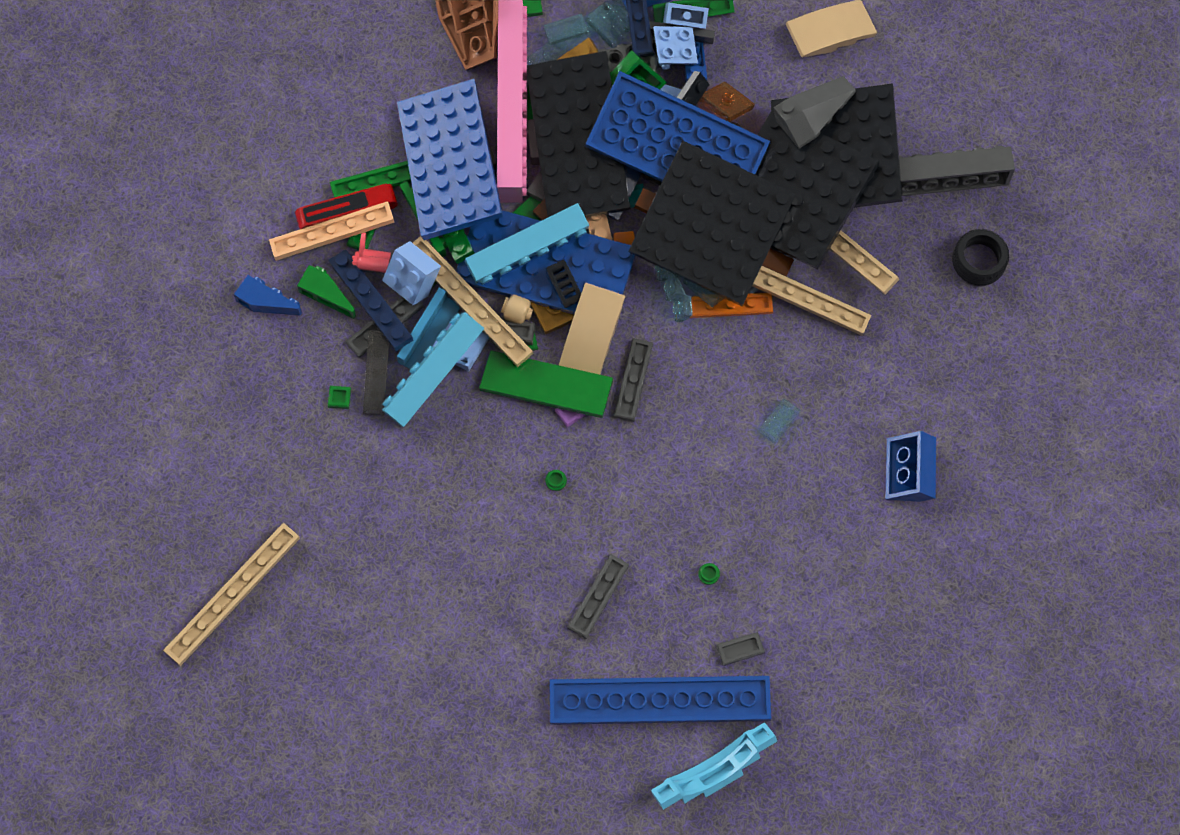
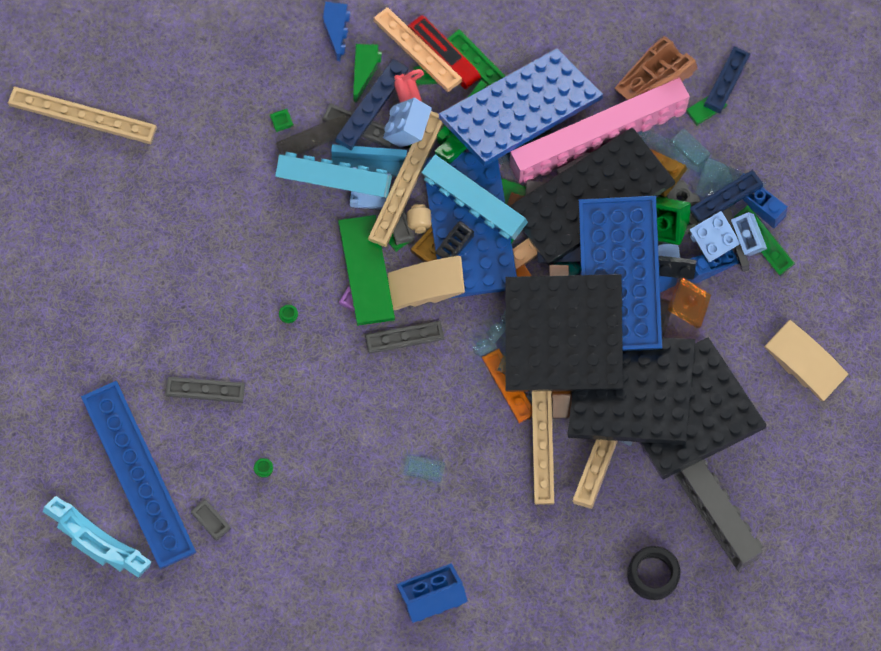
camera: 65 degrees right, 0 degrees up
(809, 111) = (705, 367): dark grey wedge -> none

